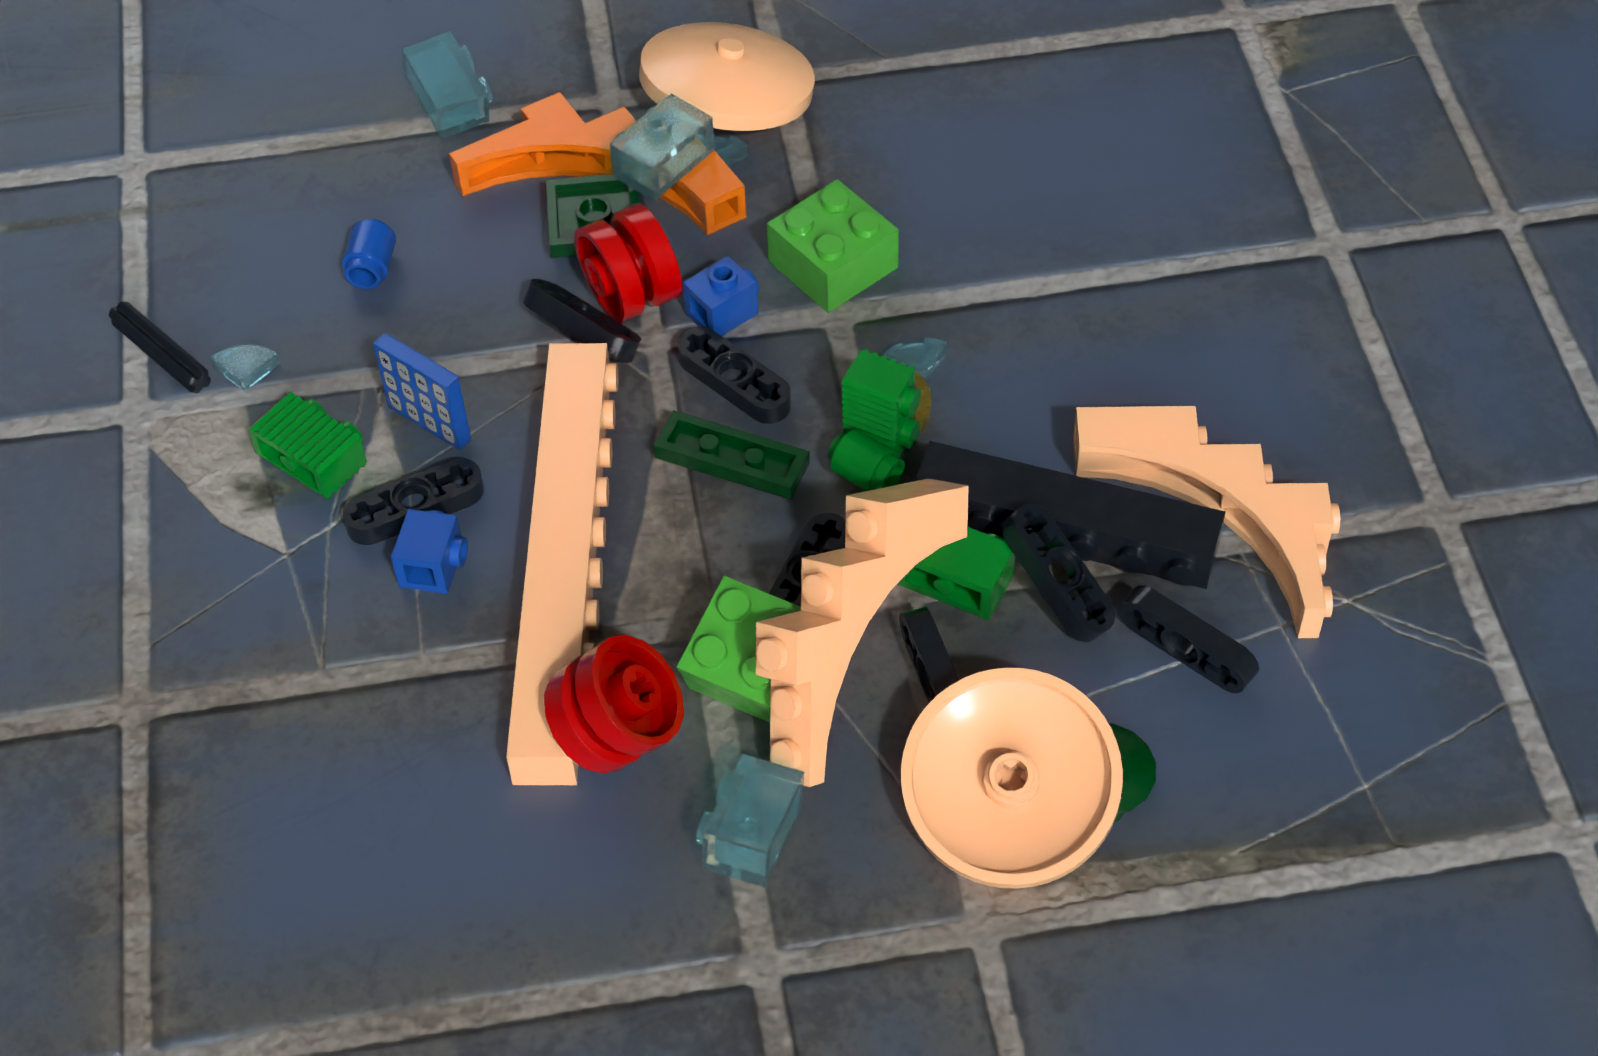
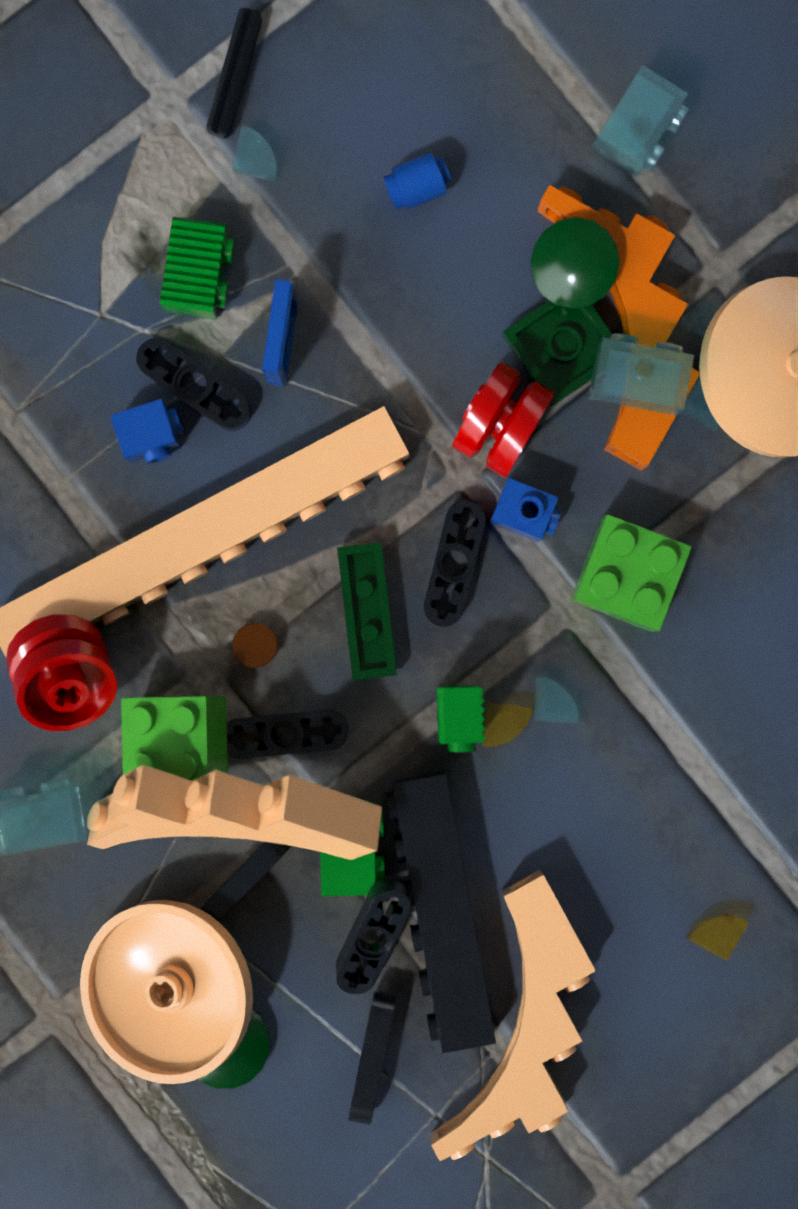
camera: 60 degrees right, 35 degrees up
(530, 161) = (575, 263): none -> dark green dish
(581, 319) = (434, 374): black beam -> none
(702, 562) = (255, 645): none -> reddish brown tile
(865, 461) = (412, 724): green brick -> none
(1216, 326) = (718, 934): none -> clear yellow tile

